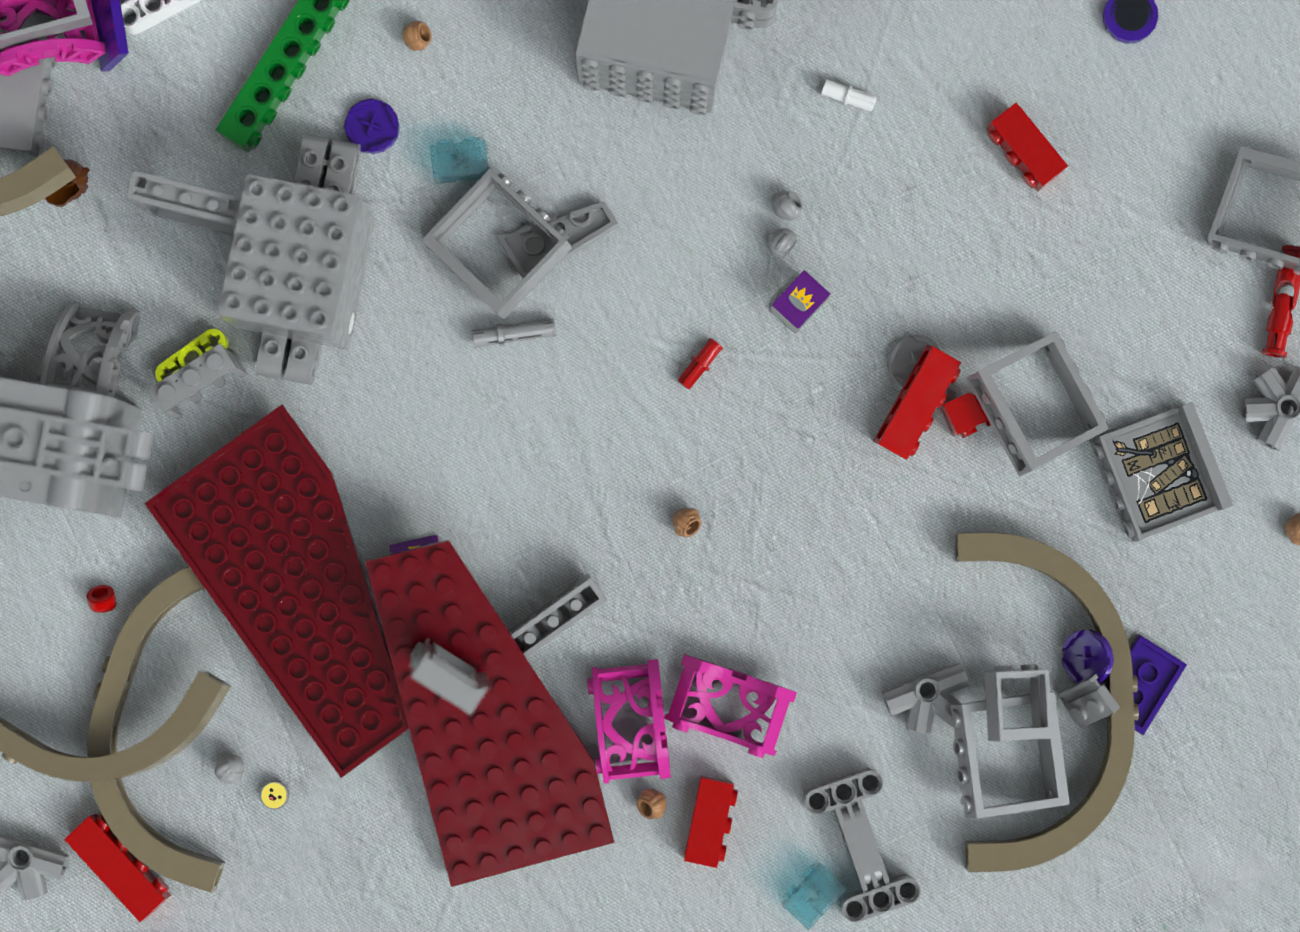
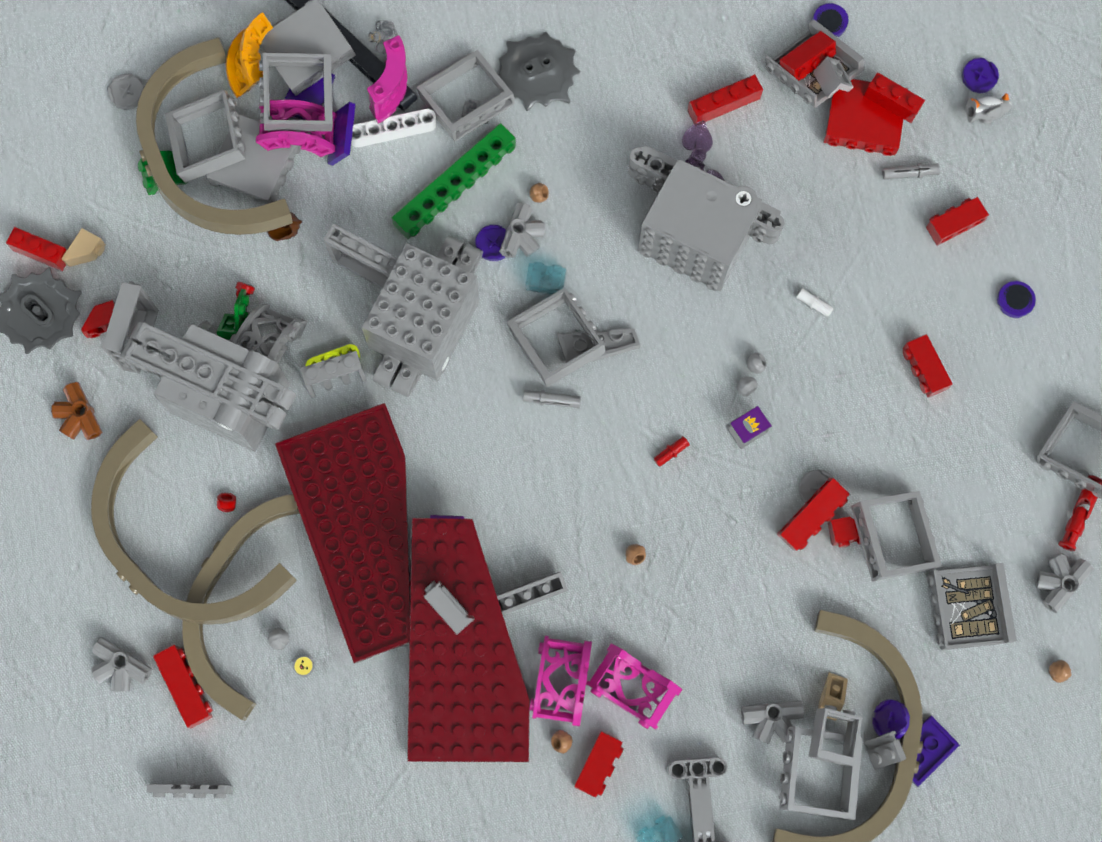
camera: 15 degrees right, 10 degrees down
(34, 341) = (232, 322): none -> green bracket
(37, 287) = (240, 285): none -> red tile
(415, 97) = (527, 232): none -> light grey piece
(1001, 641) = (833, 692): none -> tan slope

